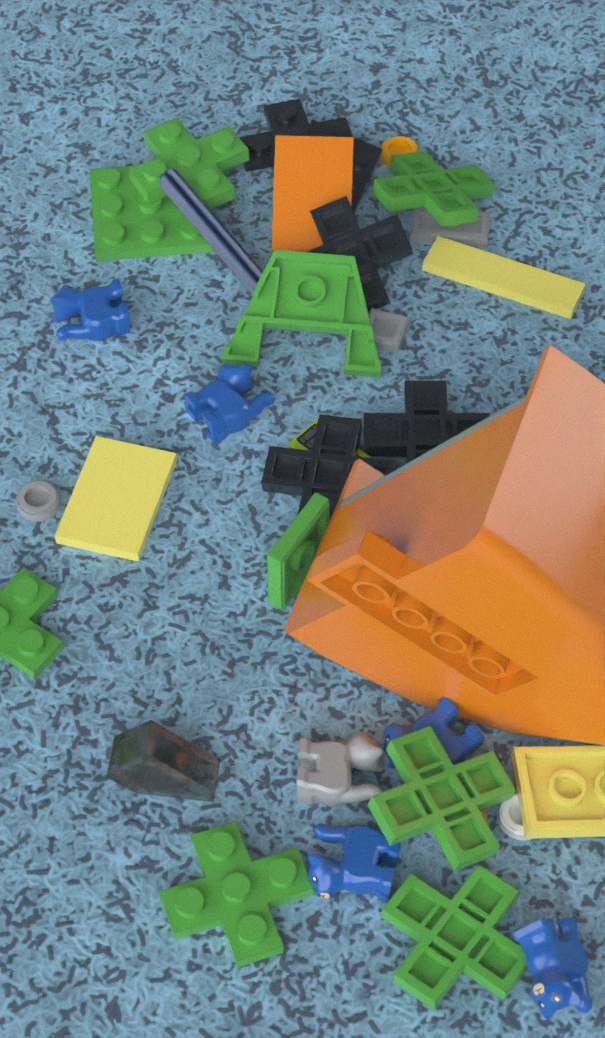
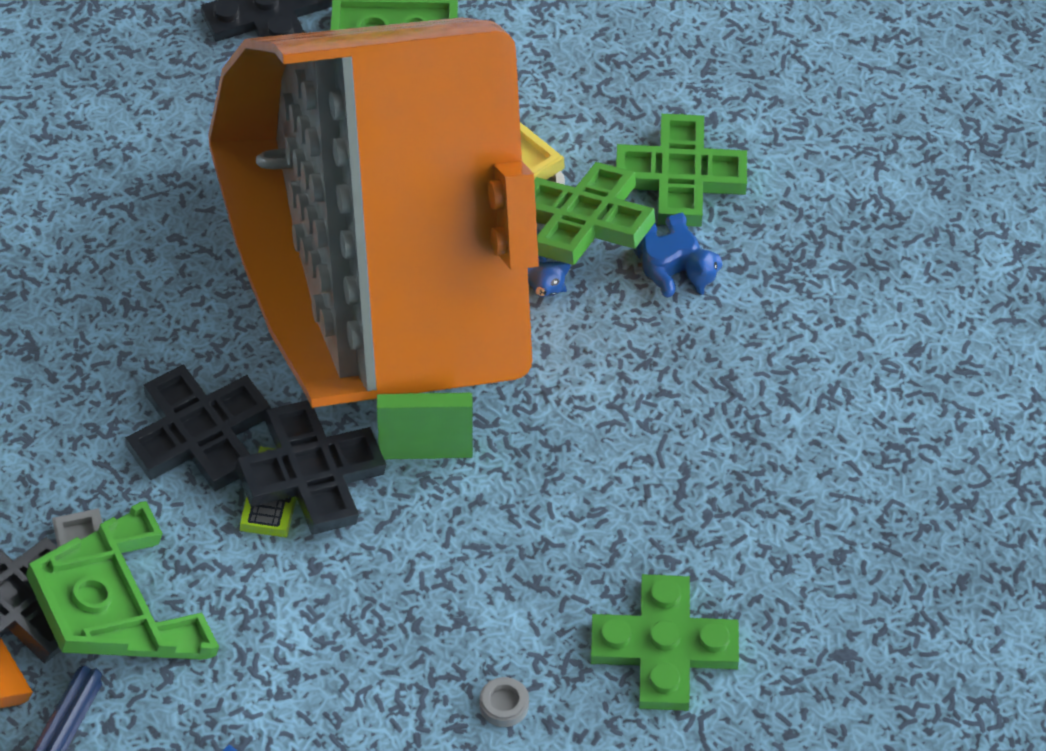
camera: 125 degrees left, 0 degrees up
(116, 498) = (451, 637): light yellow tile -> none
(162, 764) = (704, 425): clear smoke slope -> none
(223, 405) = (279, 610): blue animal -> none
(236, 894) = (760, 323): bright green plate -> none
(333, 762) = (606, 312): light grey animal -> none
(556, 964) = (659, 96): blue animal -> none

